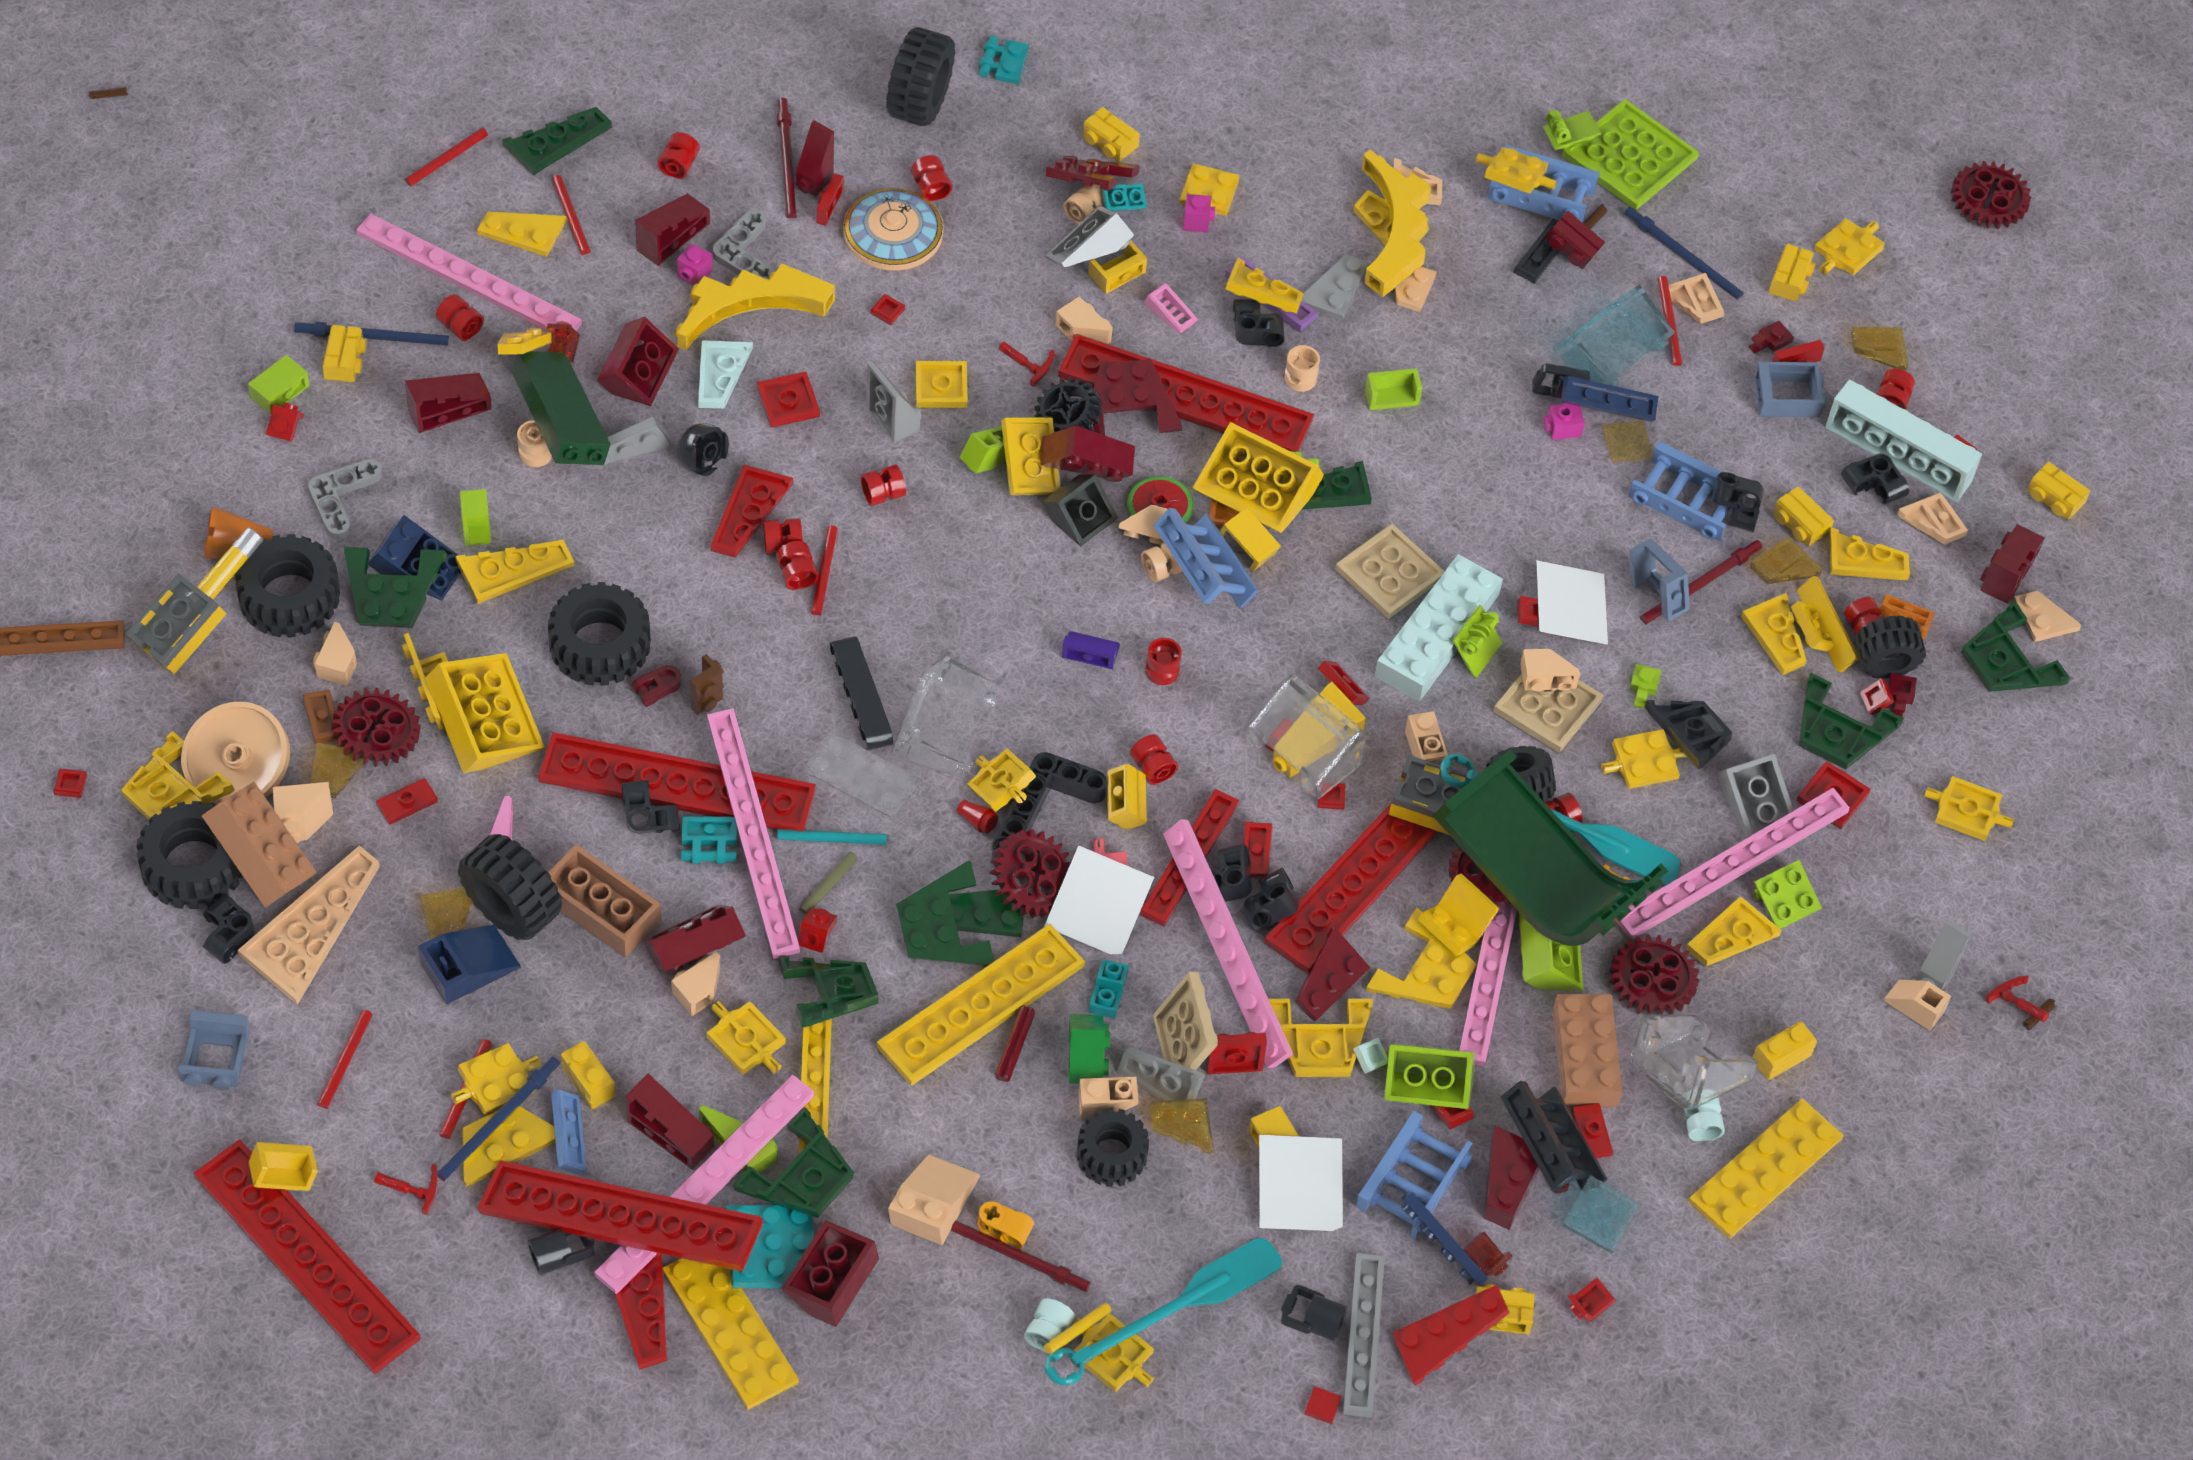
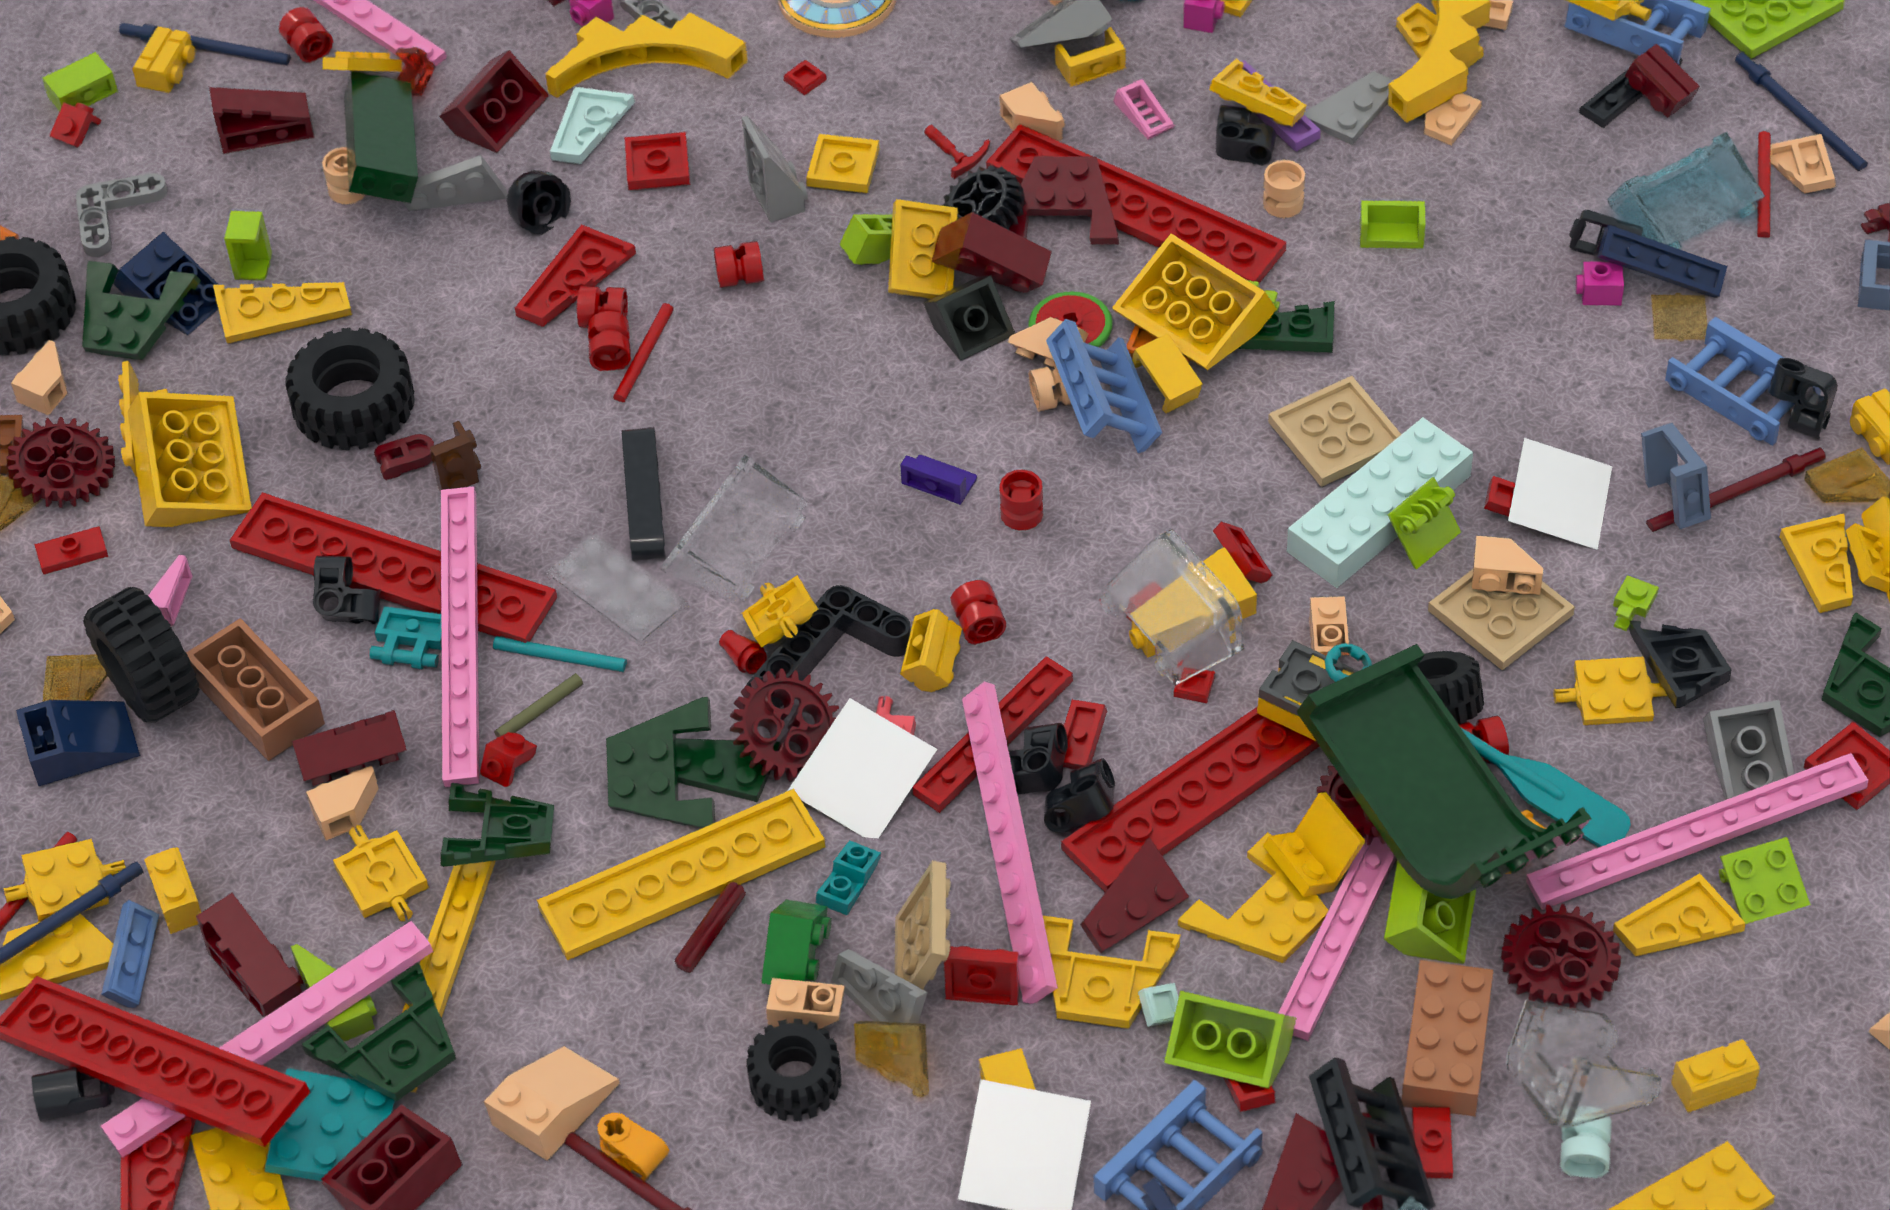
camera: 20 degrees right, 5 degrees down
(1595, 216) = (1698, 60): reddish brown piece -> none

